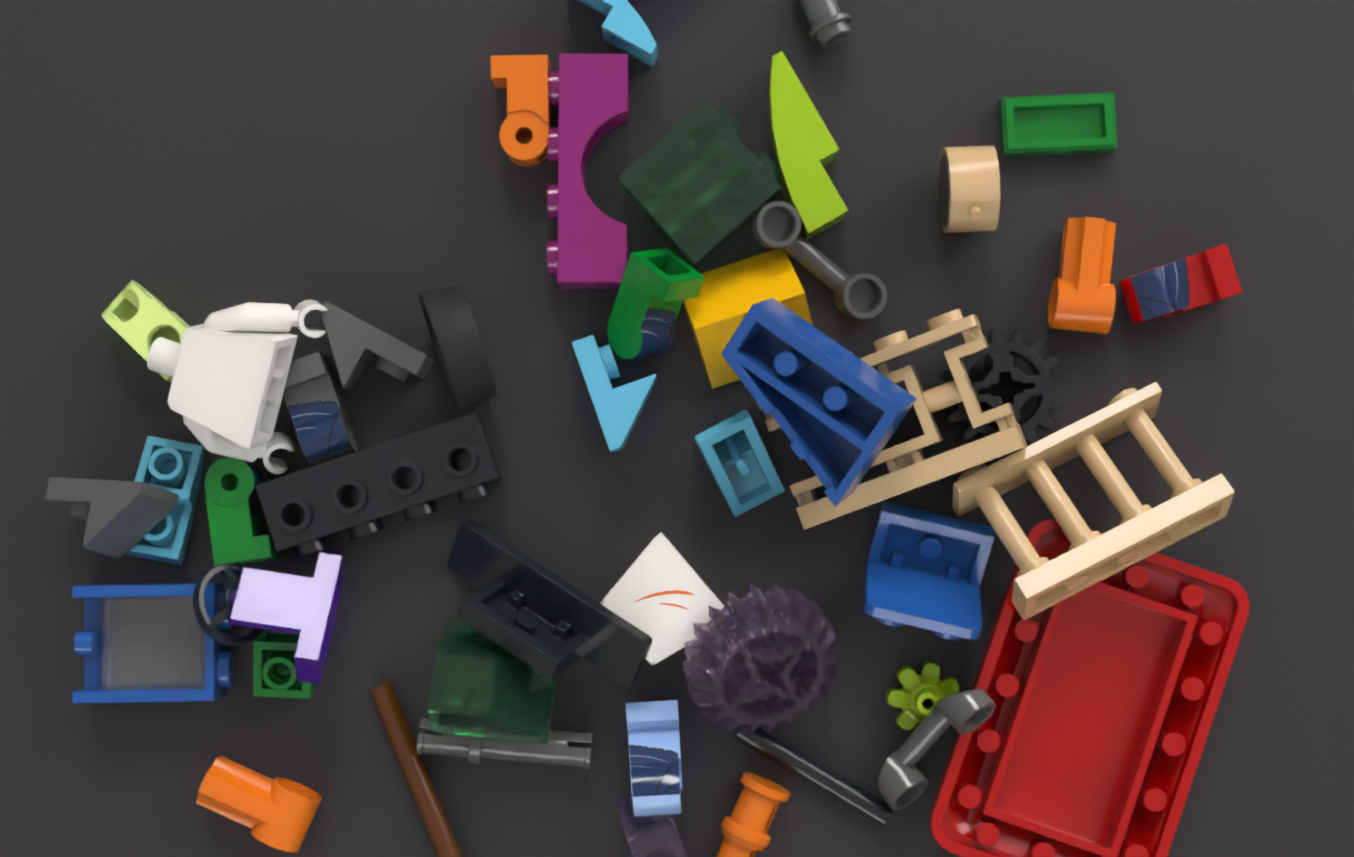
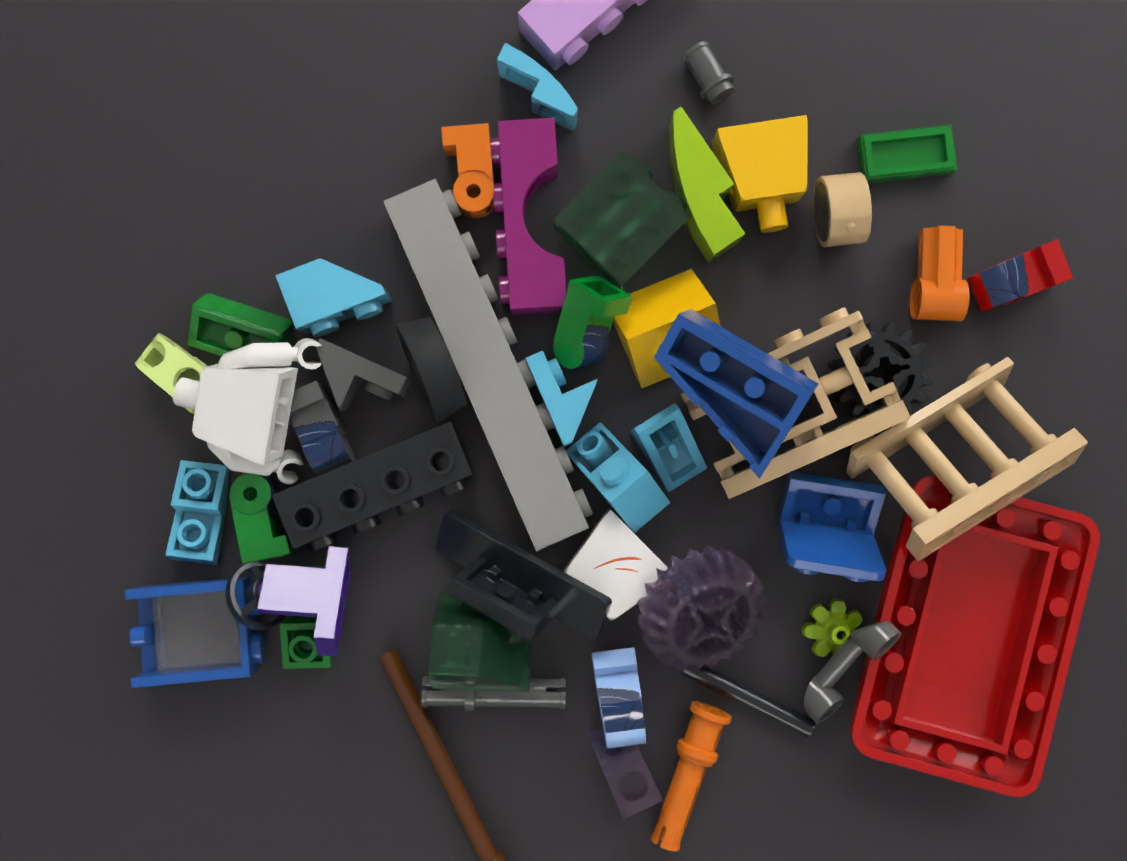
camera: 15 degrees left, 0 degrees up
(114, 510) = (155, 525): dark grey slope -> none
(218, 278) = (226, 325): none -> green slope
(274, 809) = (305, 761): orange piece -> none
(336, 247) = (326, 294): none -> medium azure slope
(525, 346) = (487, 365): none -> light grey brick
(673, 494) = (618, 477): none -> medium azure slope
(855, 295) = (752, 304): dark grey bar -> none
(880, 130) = (766, 166): none -> yellow torso

